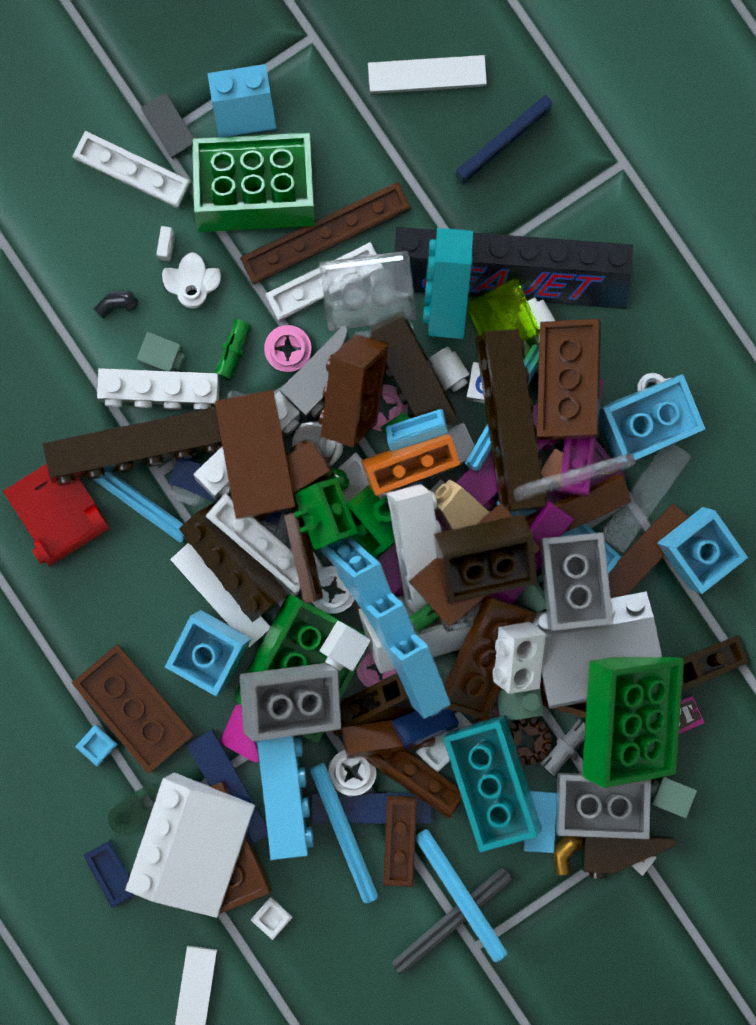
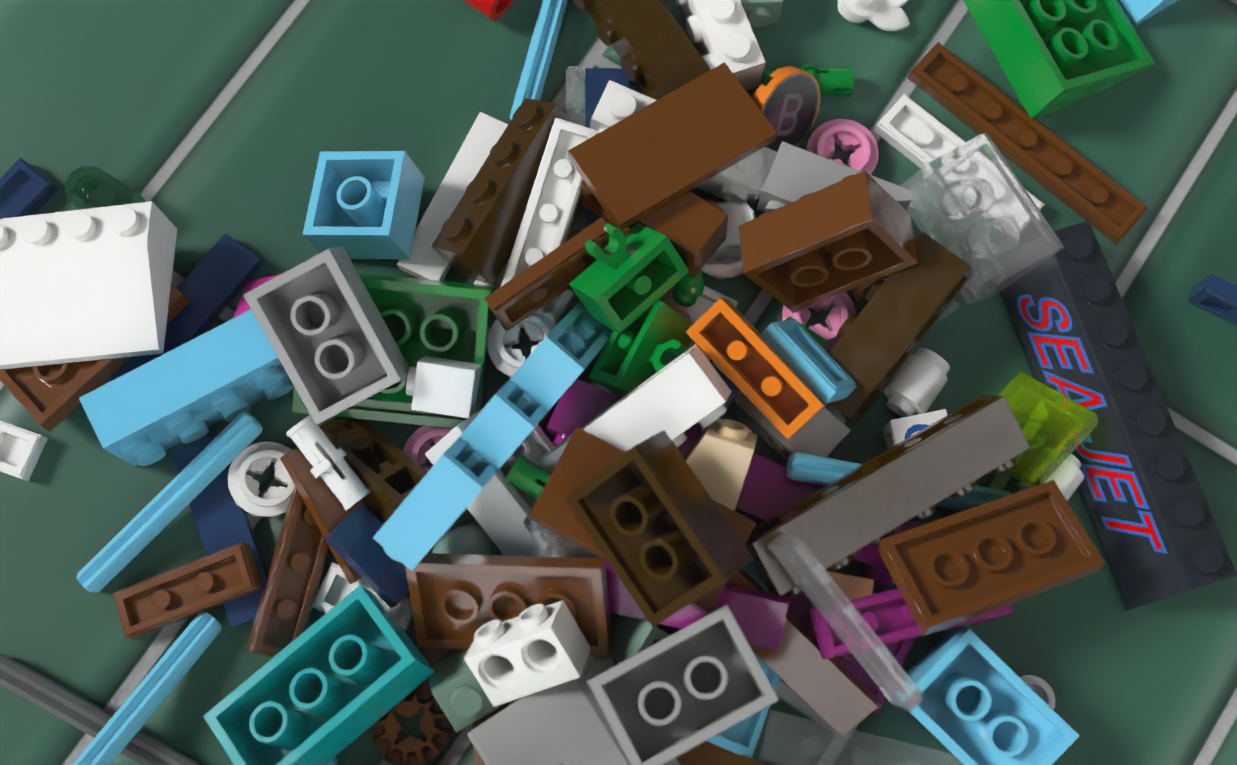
camera: 70 degrees right, 10 degrees down
(96, 745) = (183, 118): medium azure tile -> none
(133, 708) = (250, 144): reddish brown plate -> none
(250, 371) = (789, 104): none -> tile
(363, 730) = (328, 462): none -> white pin
(448, 283) = (1048, 318): teal brick -> none

